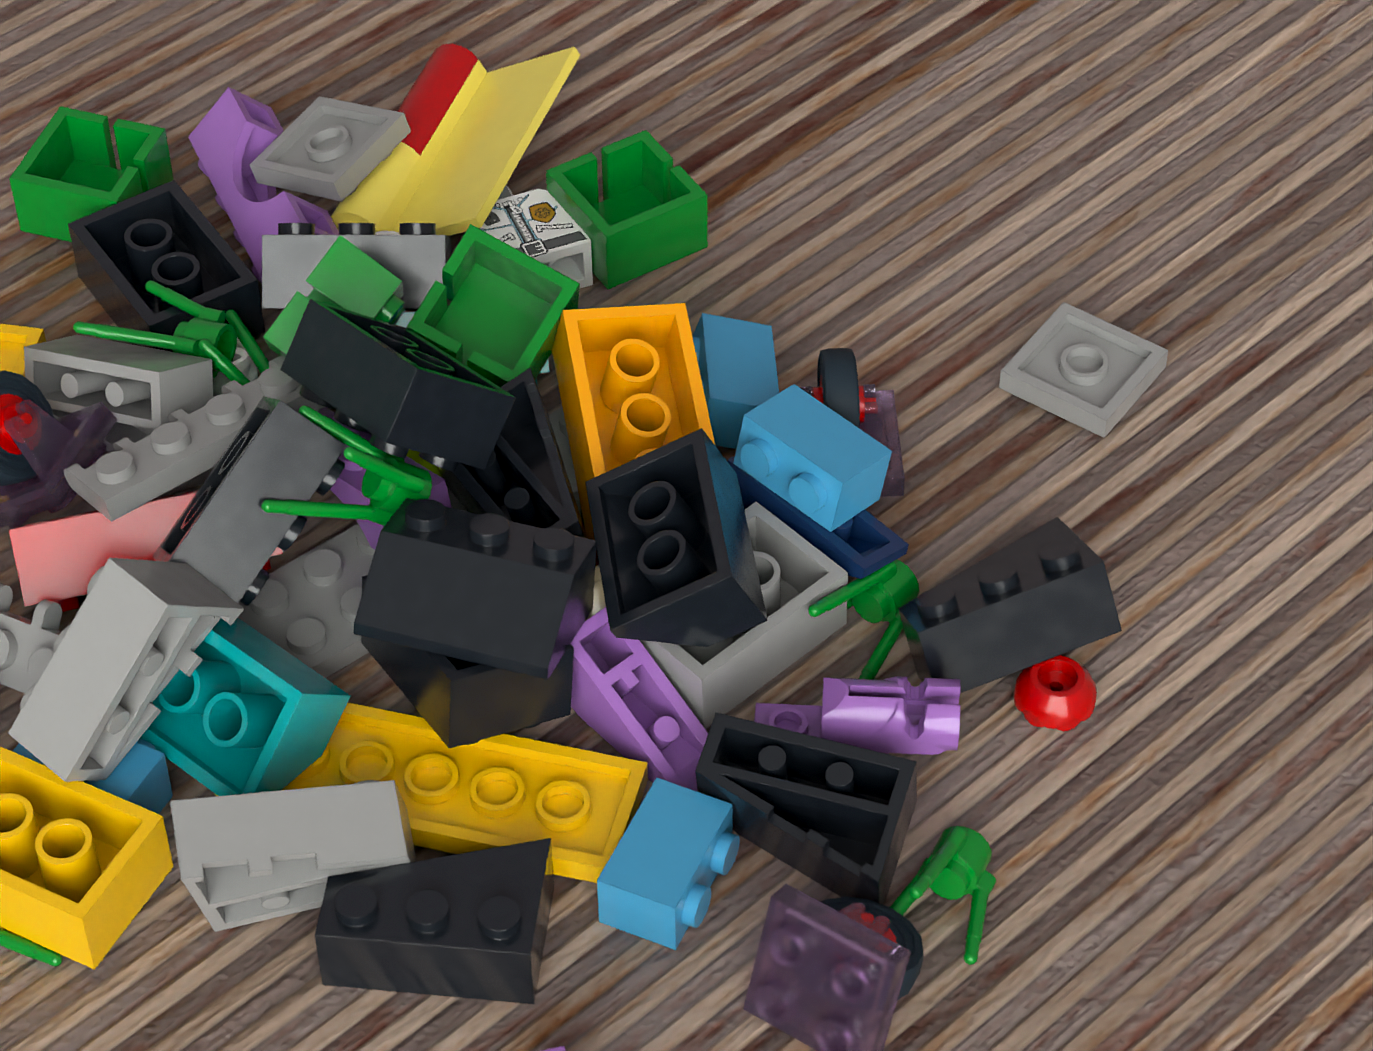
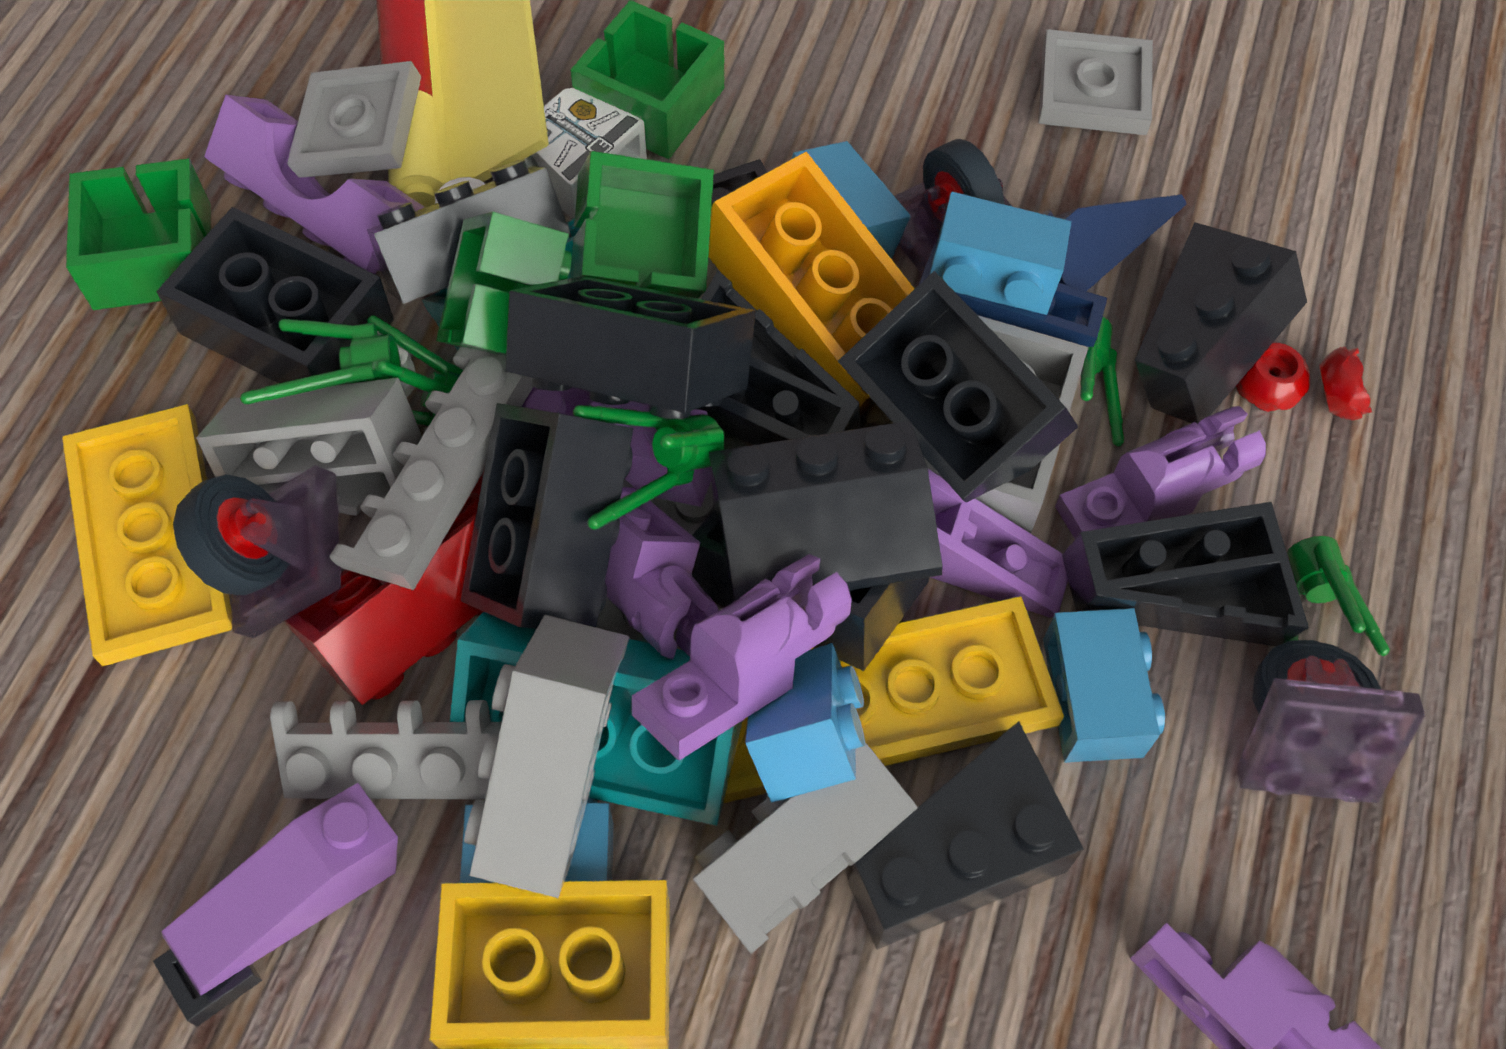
camera: 30 degrees left, 15 degrees up
(316, 589) = (653, 578): none -> medium lavender plate
(321, 653) = (742, 657): none -> medium lavender plate
(351, 743) = (811, 731): none -> dark azure brick
(948, 497) = (1109, 233): none -> dark blue slope
(1117, 723) = (1344, 385): none -> red plate

